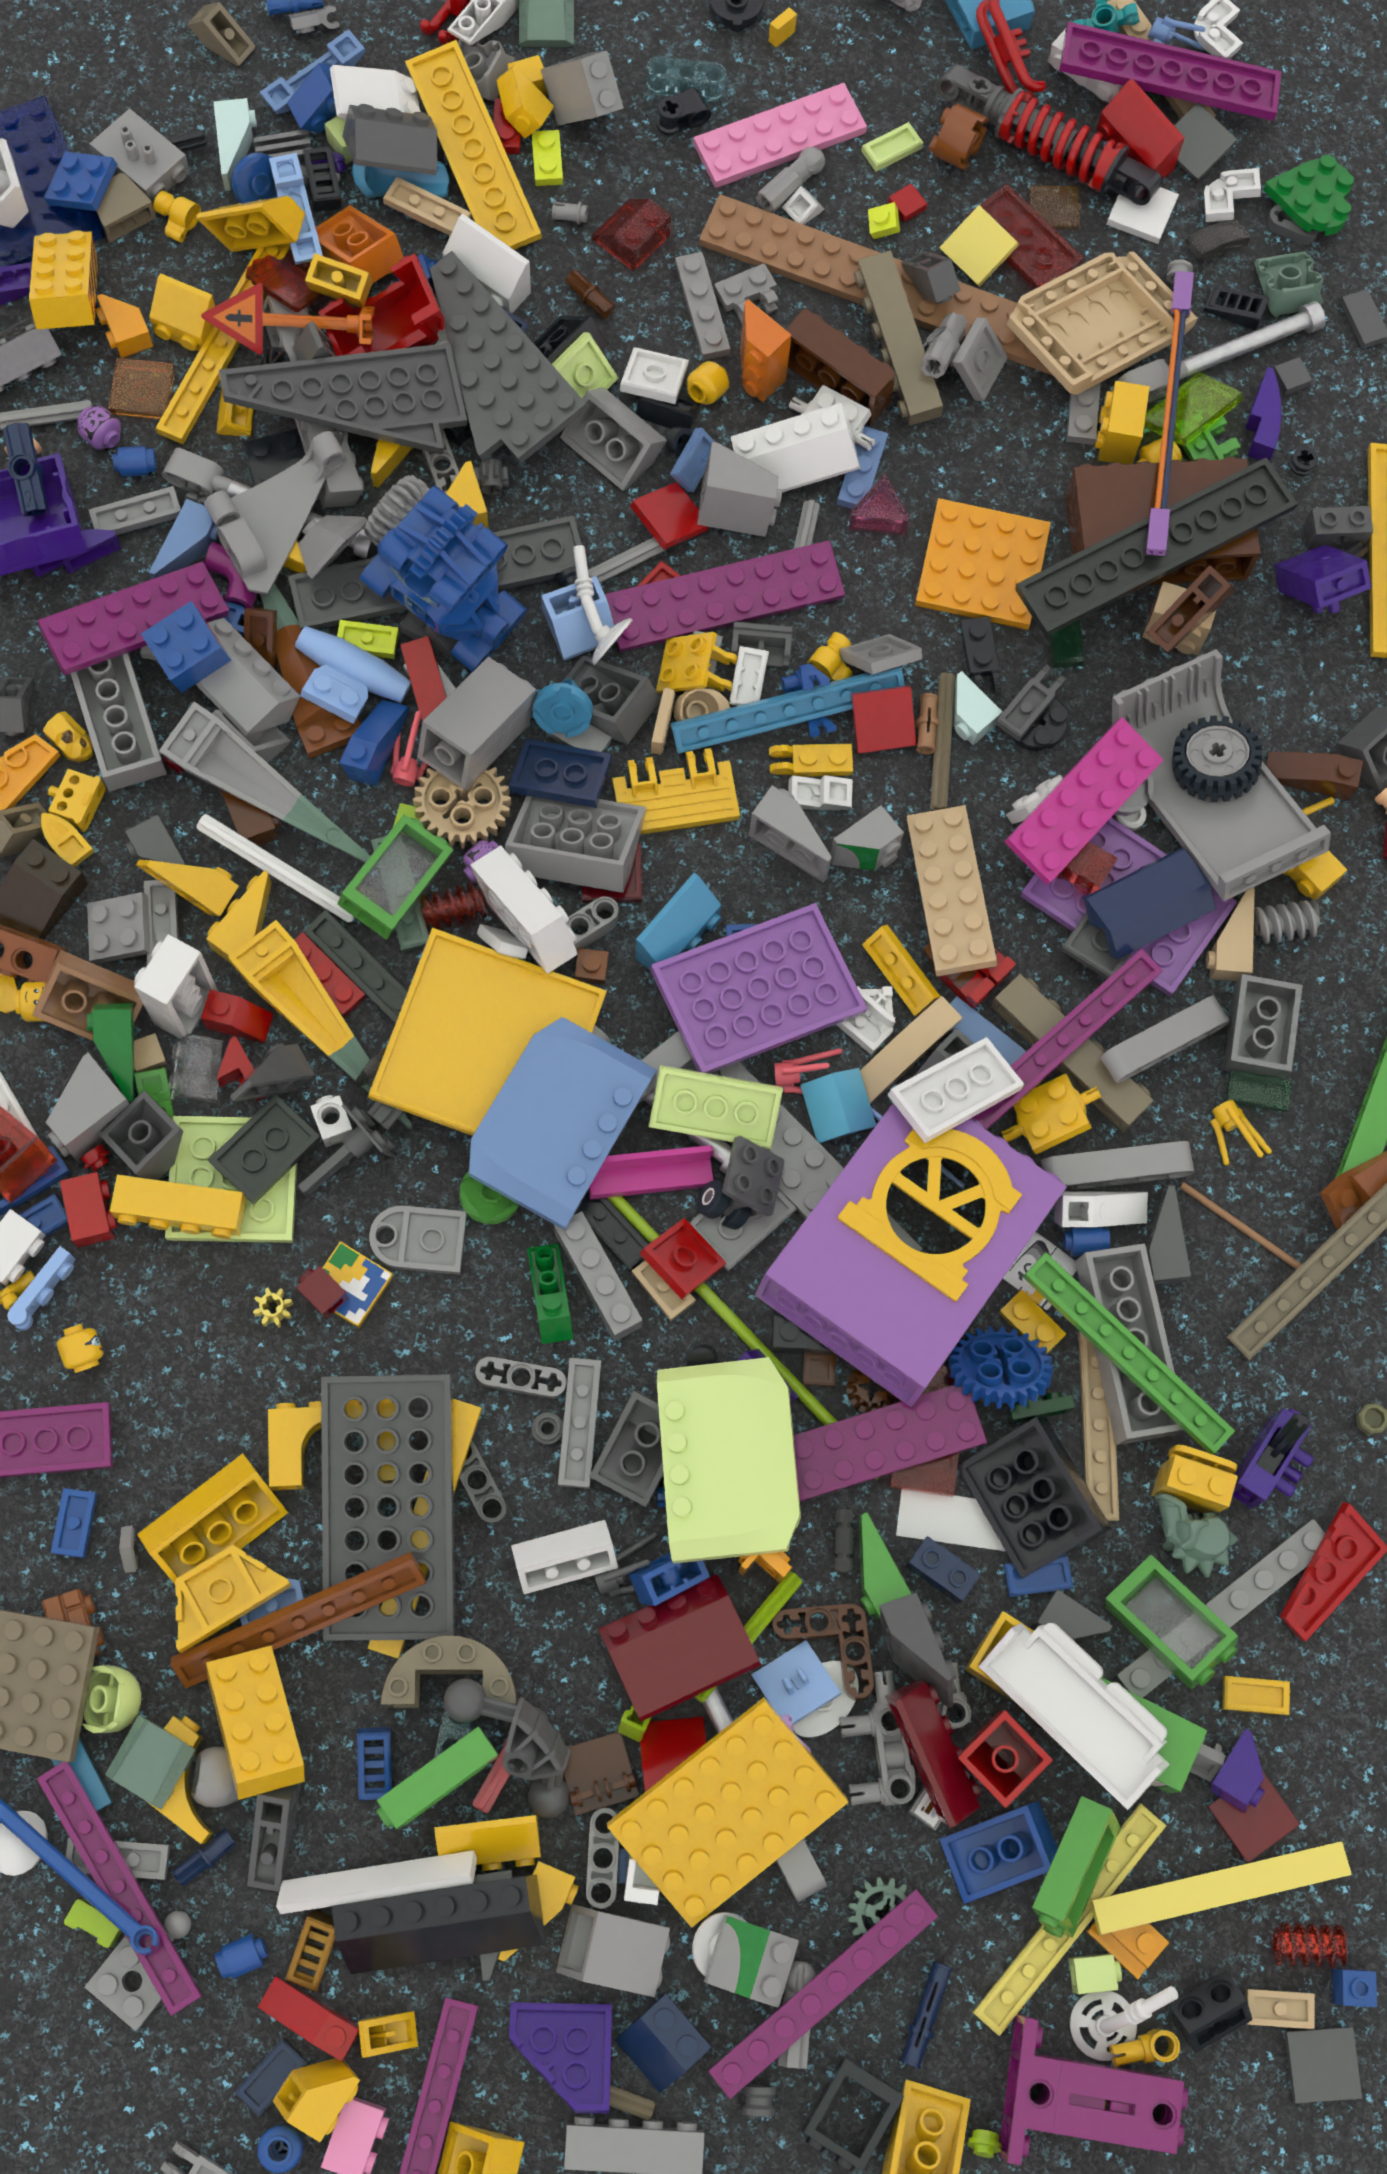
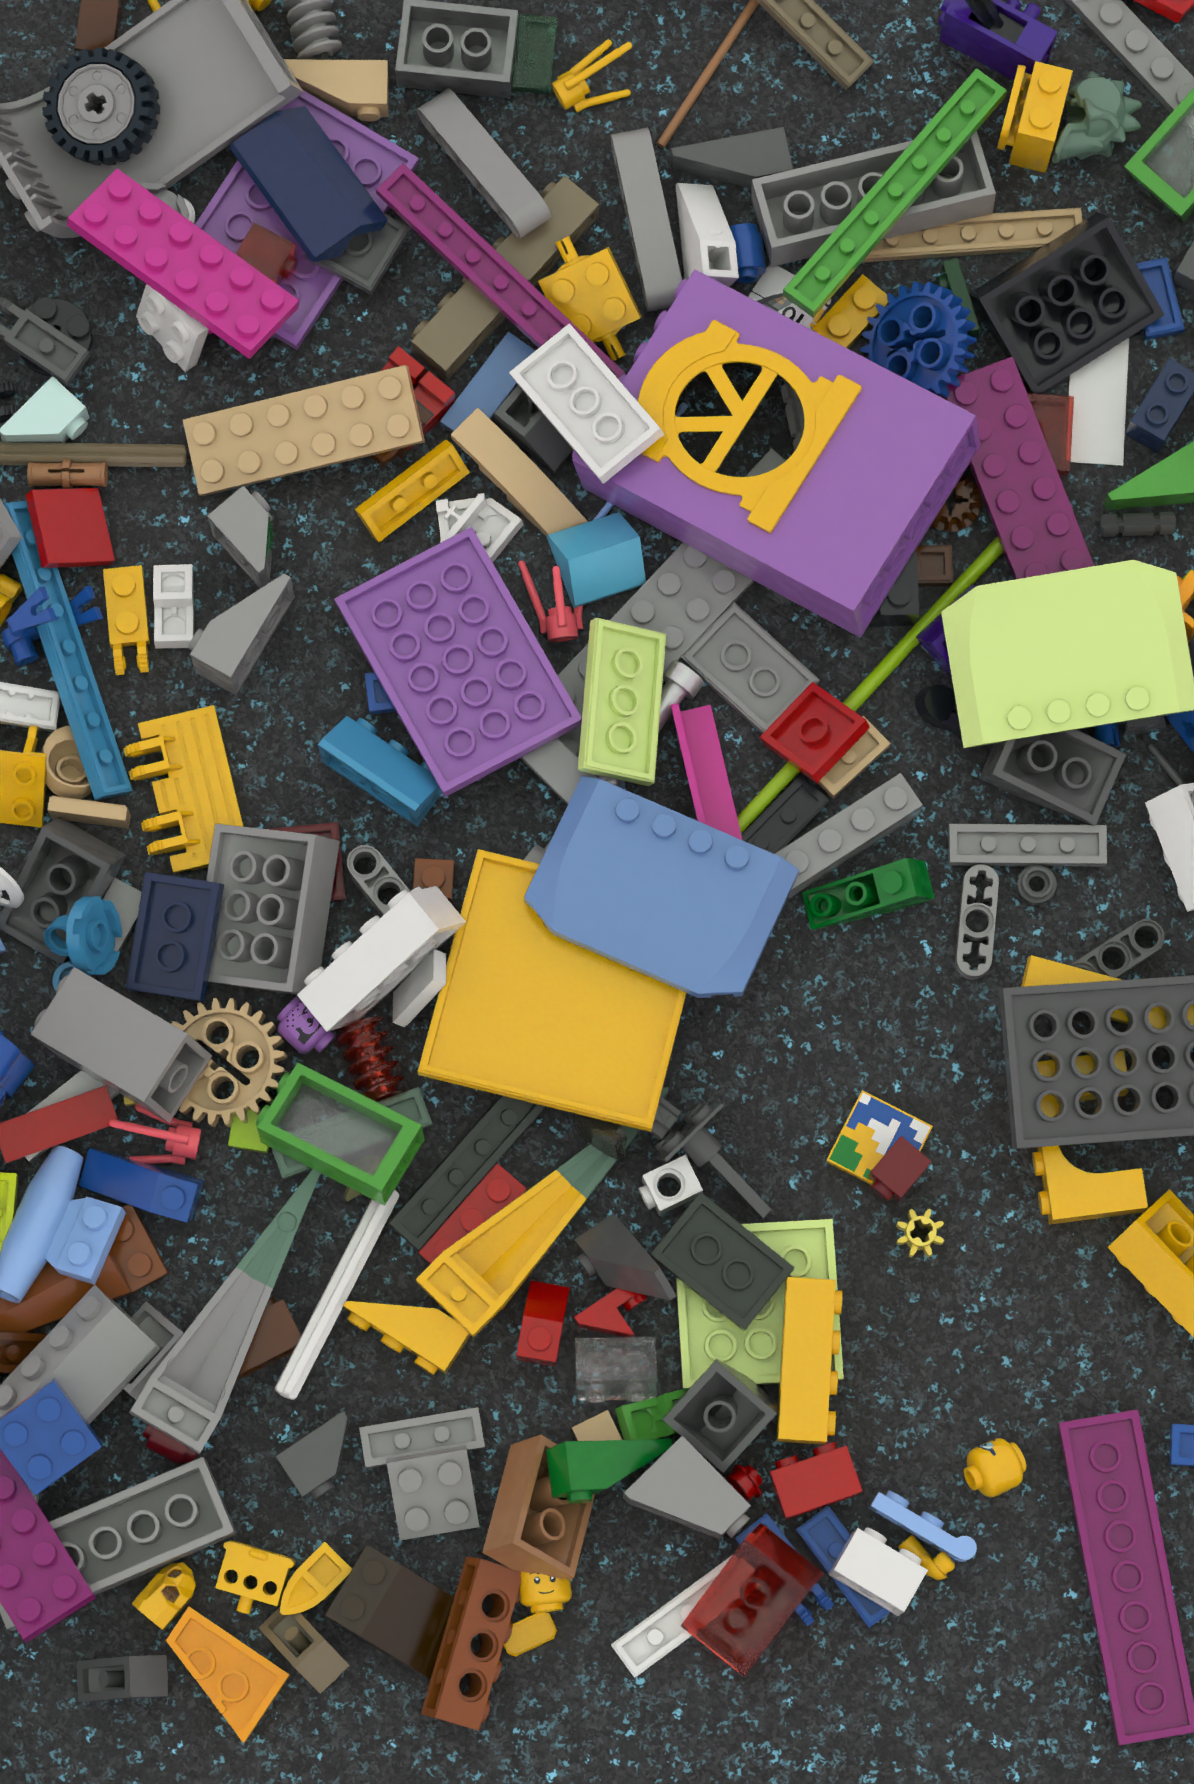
camera: 90 degrees left, 5 degrees up
(174, 986) = (527, 1390): white brick -> none
(201, 886) = (368, 1392): yellow slope -> none
(422, 1239) = (812, 1060): light grey tile -> none
(484, 1203) = (763, 991): bright green tile -> none
(749, 1184) = (722, 654): dark grey plate -> none

